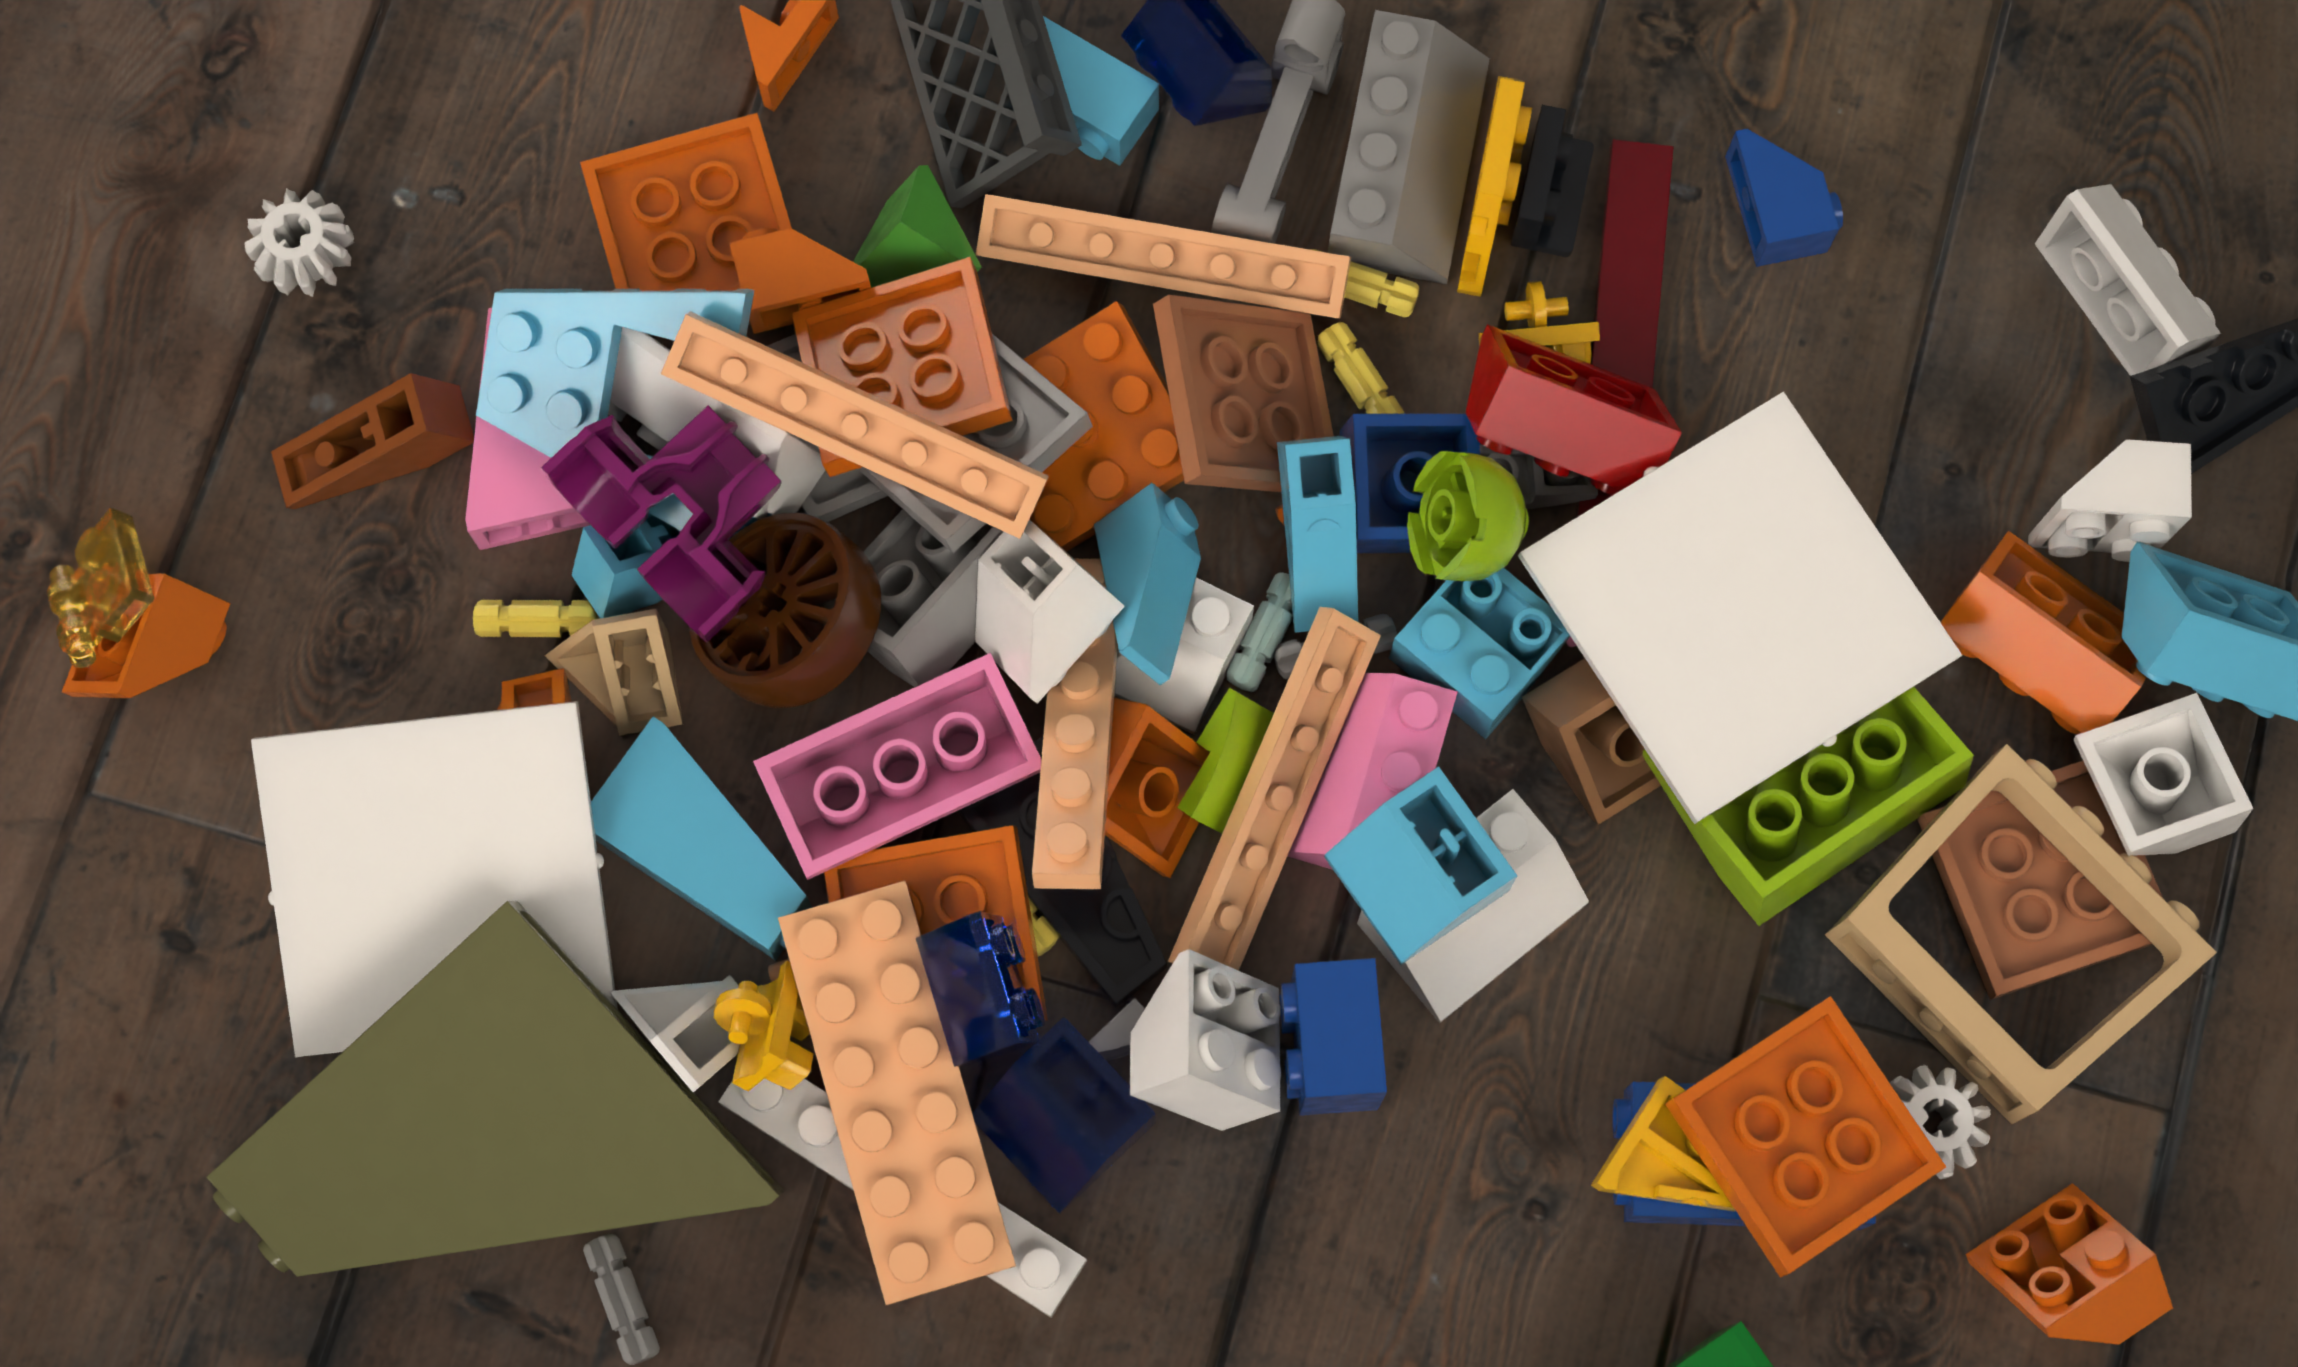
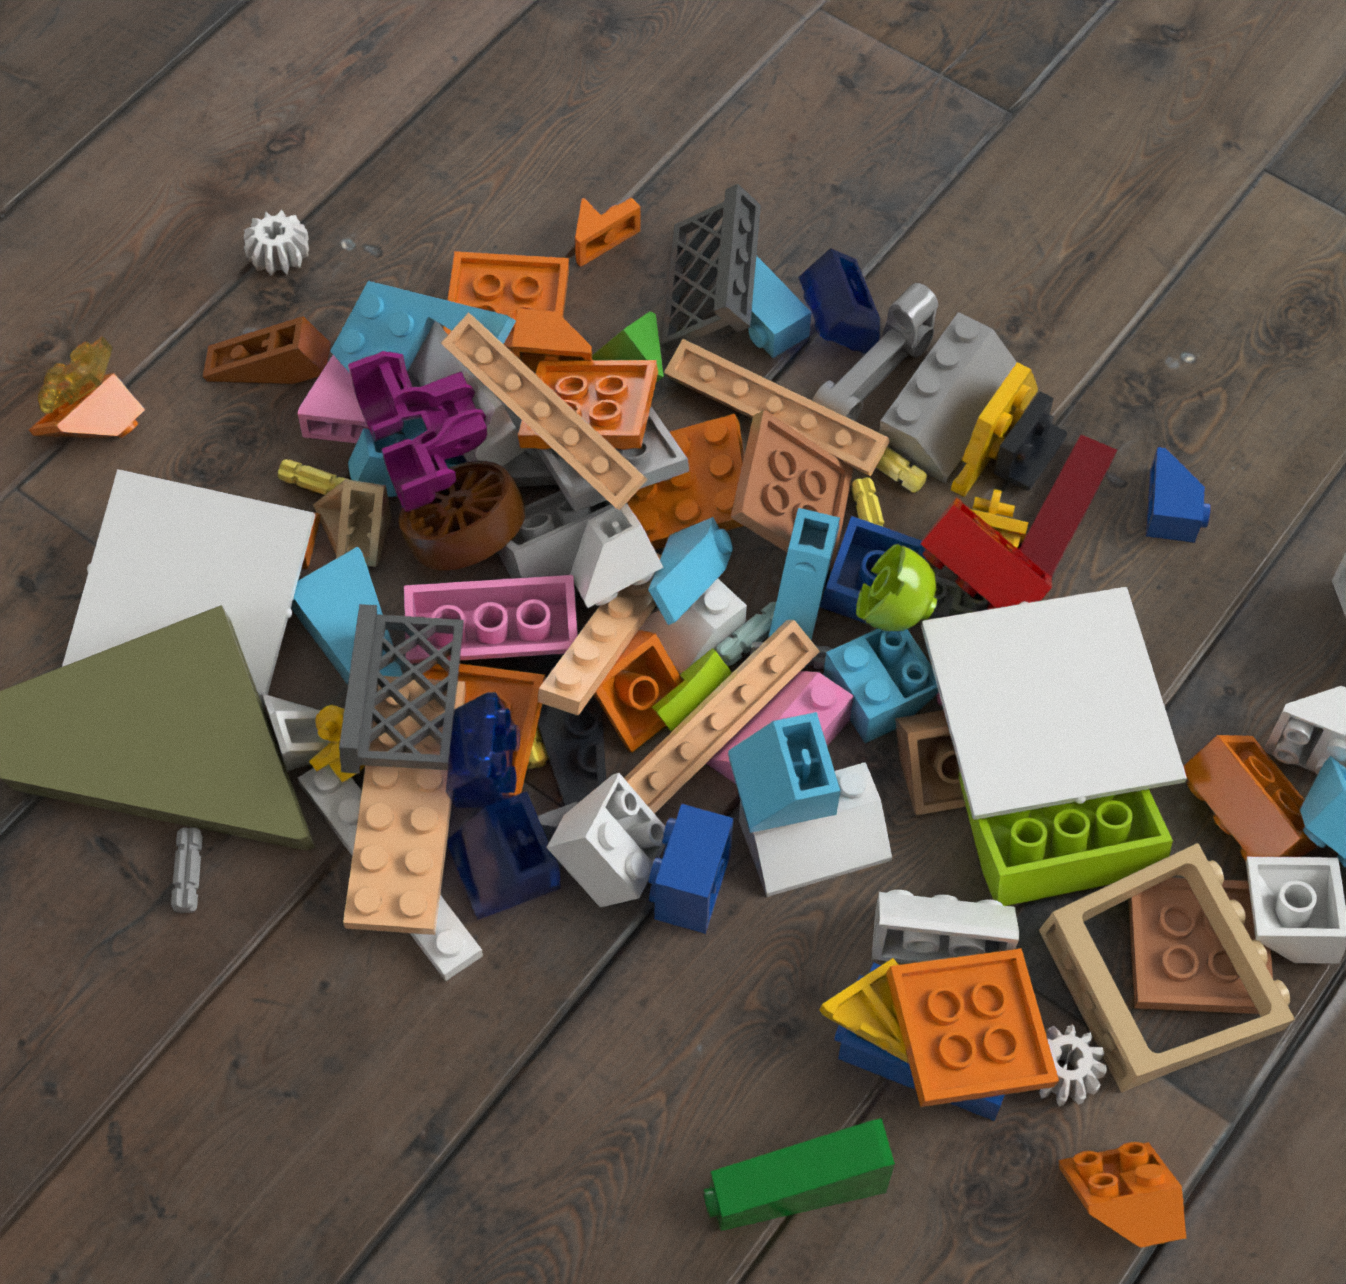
camera: 20 degrees right, 15 degrees down
(771, 950) = (363, 696): none -> dark grey fence
(1706, 989) = (940, 927): none -> white slope

